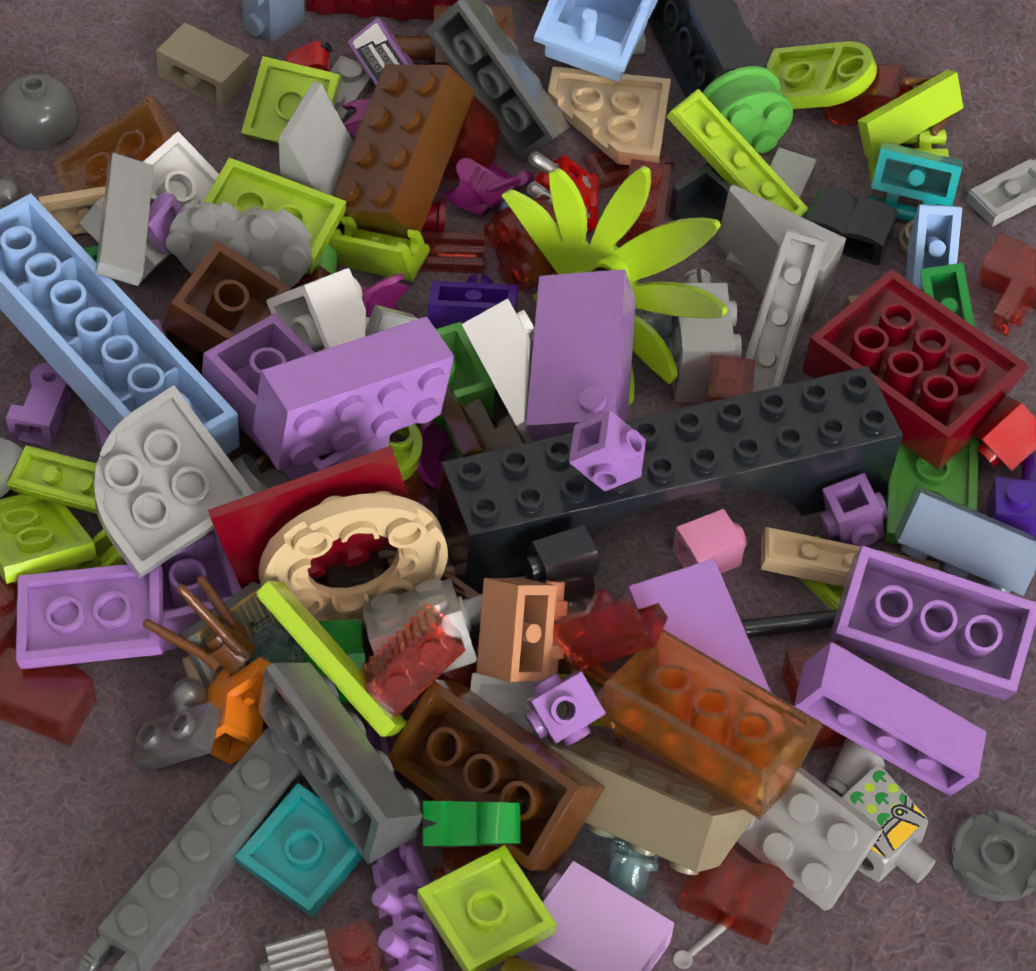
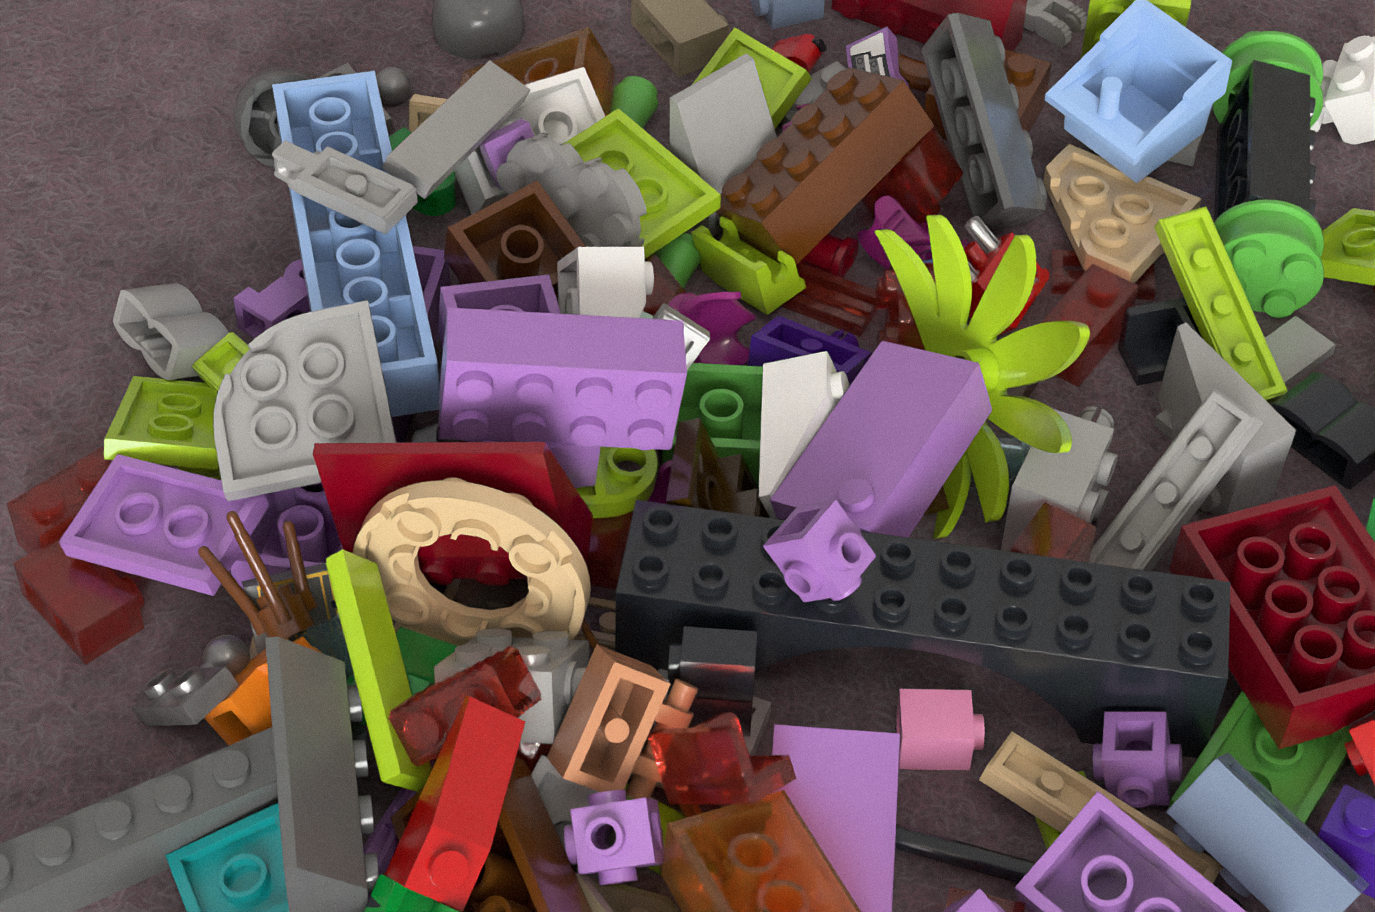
camera: 30 degrees right, 5 degrees down
(79, 297) = (345, 185): none -> light grey hinge
(210, 143) = (635, 98): none -> bright green cone
(461, 732) = (459, 806): none -> red slope

